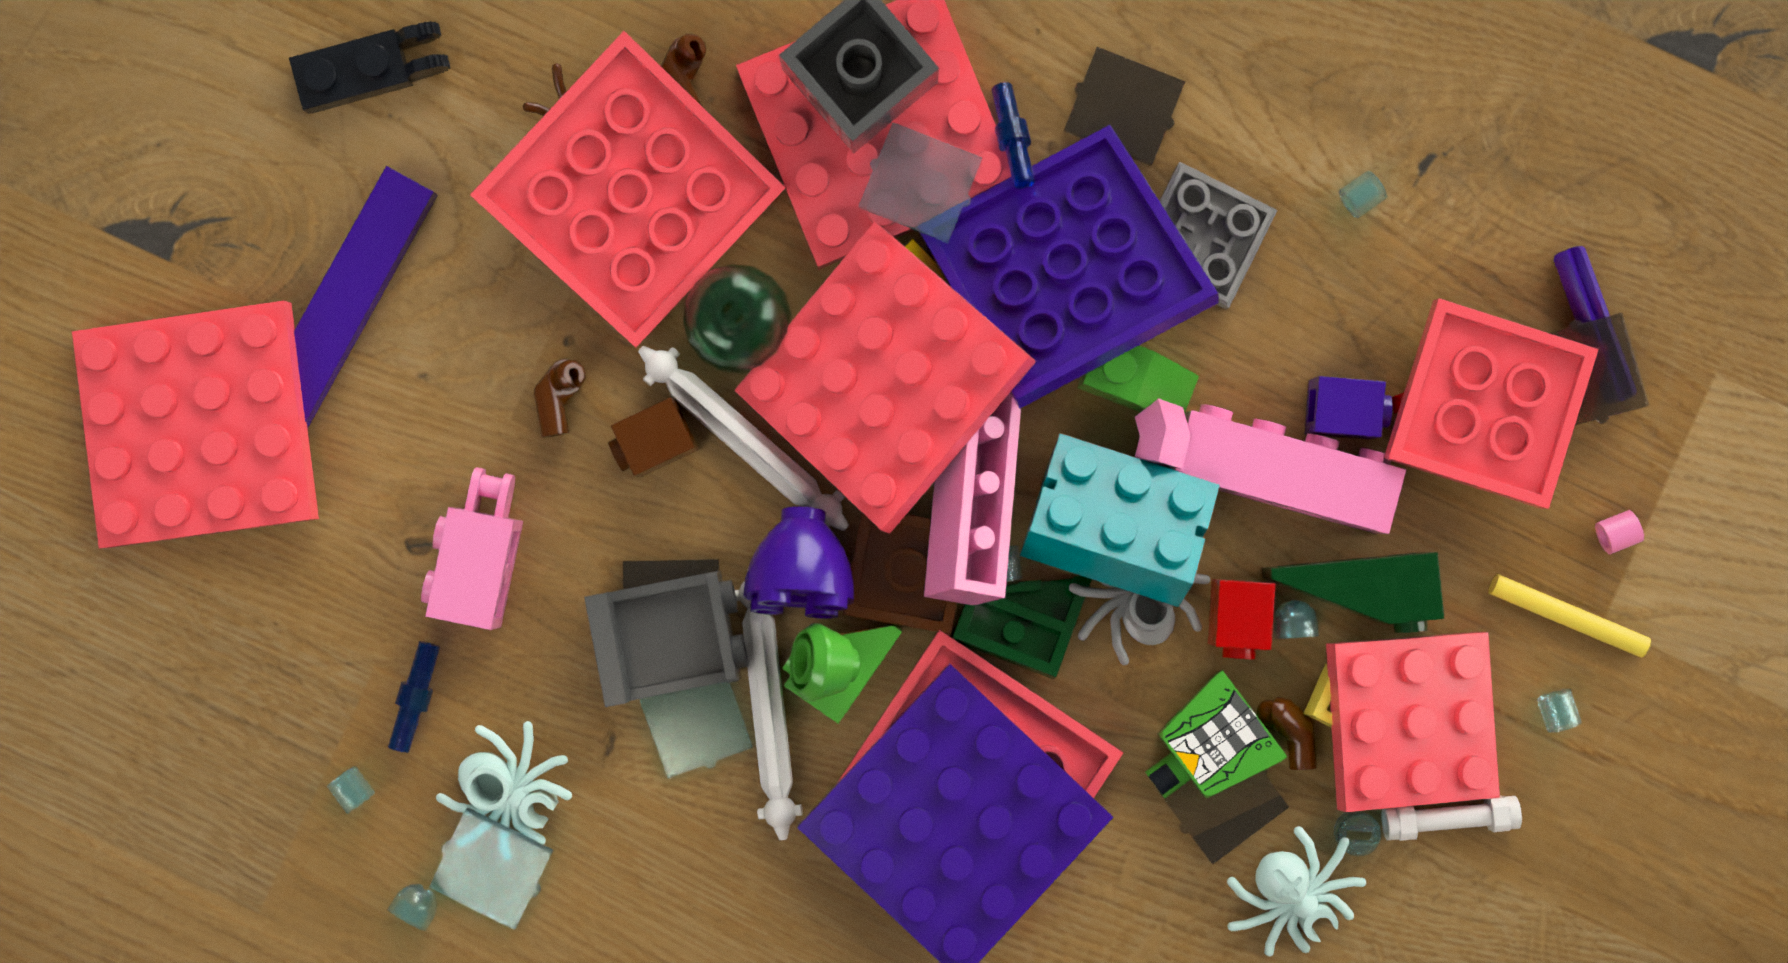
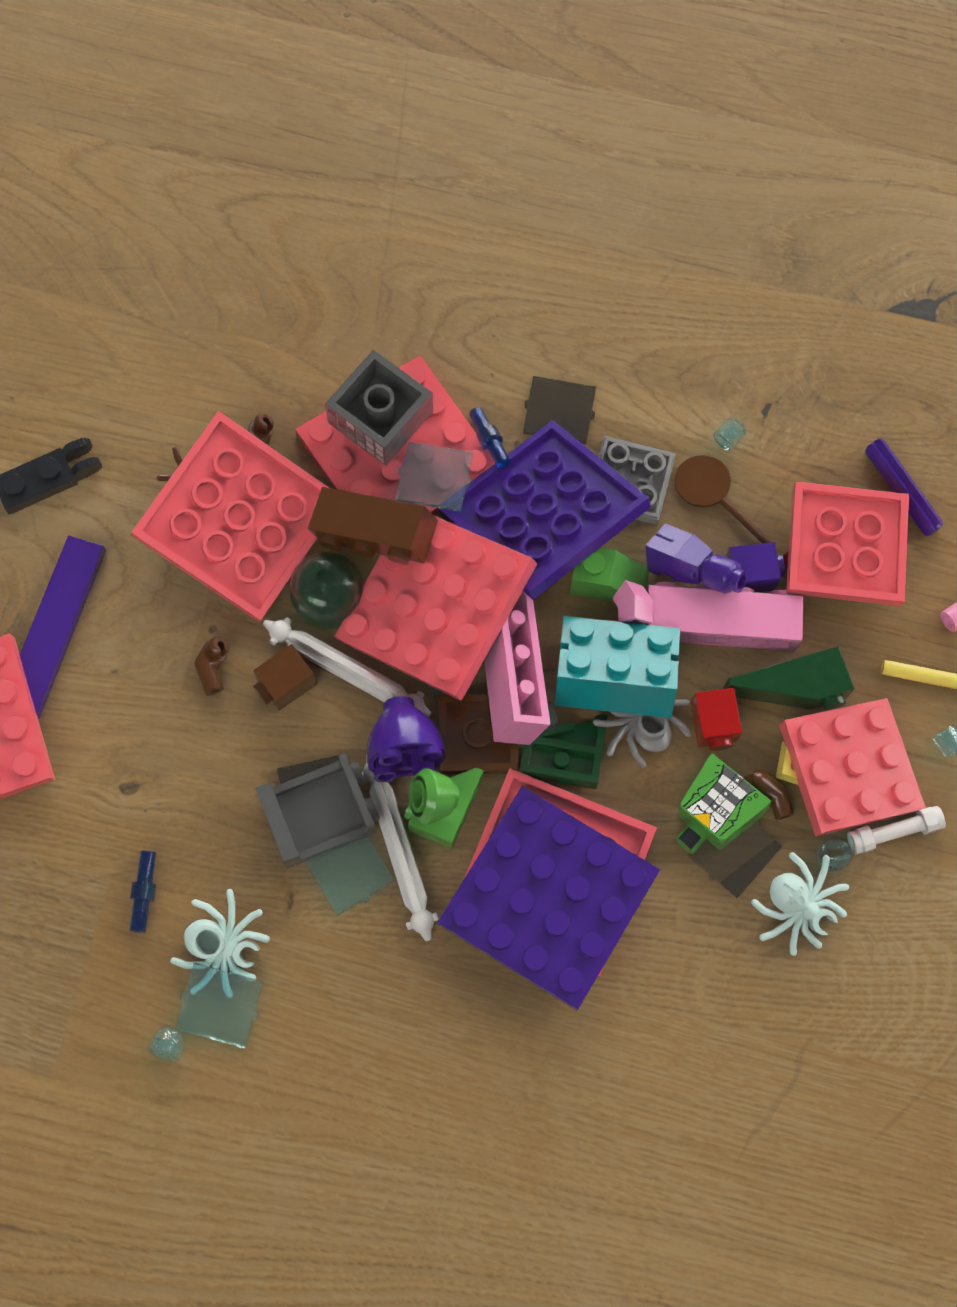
camera: 15 degrees left, 15 degrees down
(351, 789) = (107, 968): clear light blue piece -> none
(474, 557) = (171, 783): bright pink brick -> none
(814, 251) = (372, 525): none -> reddish brown brick
(1259, 386) = (692, 561): none -> dark purple piece
(1295, 620) = (754, 717): clear light blue hinge -> none
(1308, 261) = (706, 482): none -> reddish brown piece
(1615, 377) = (925, 514): clear smoke piece -> none

